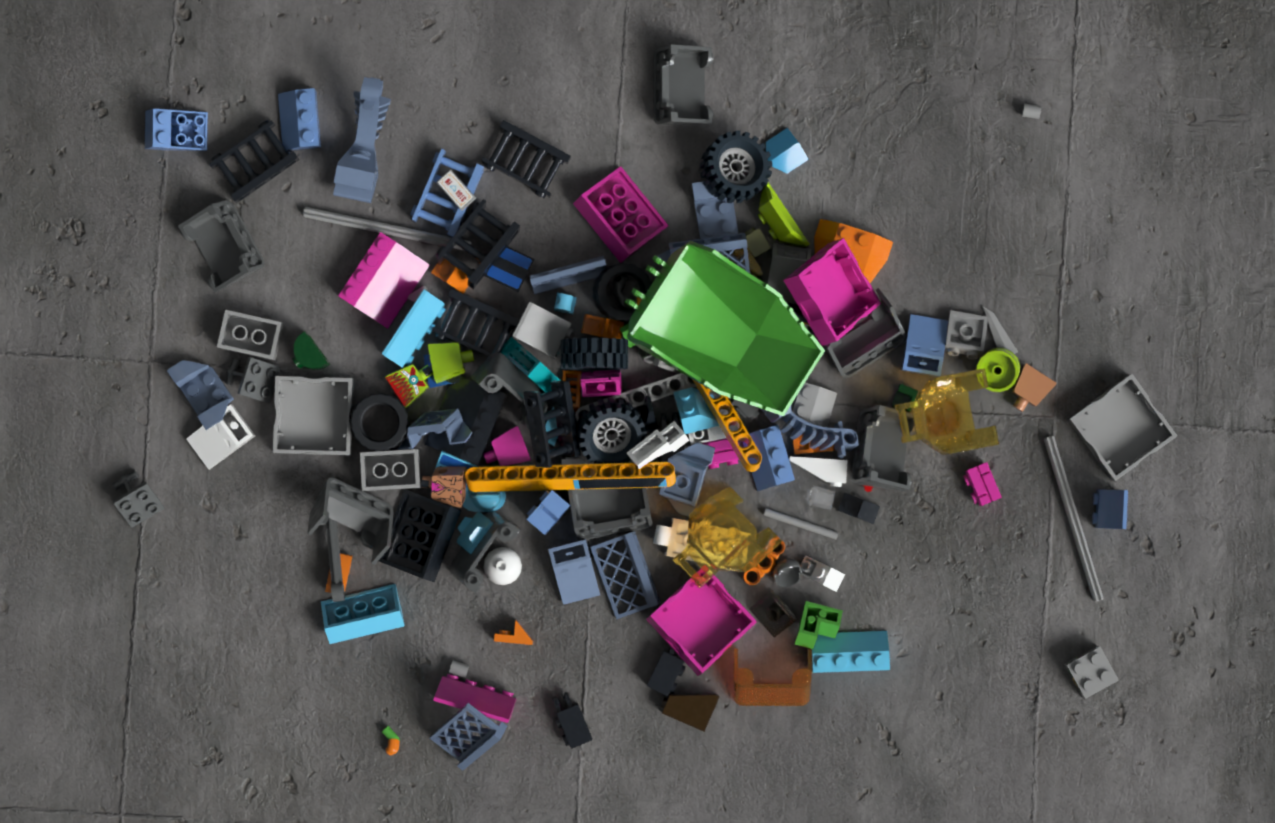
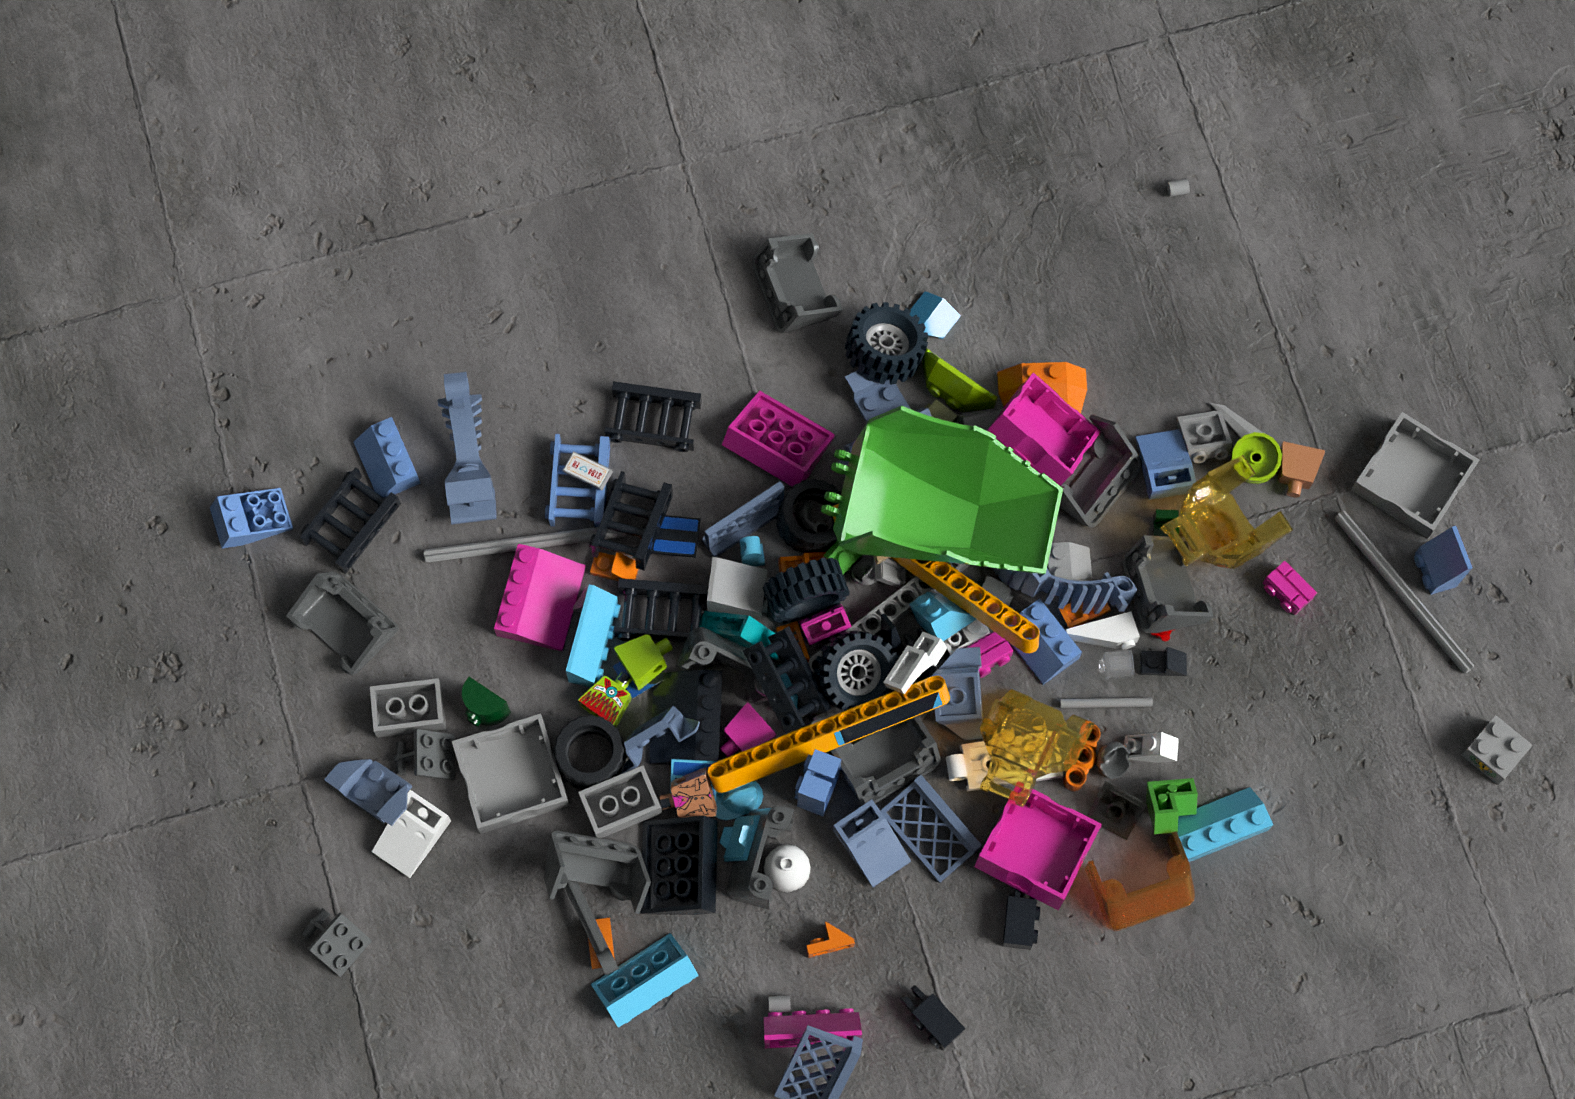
camera: 20 degrees left, 15 degrees down
(690, 709) = (1064, 954): dark brown slope -> none

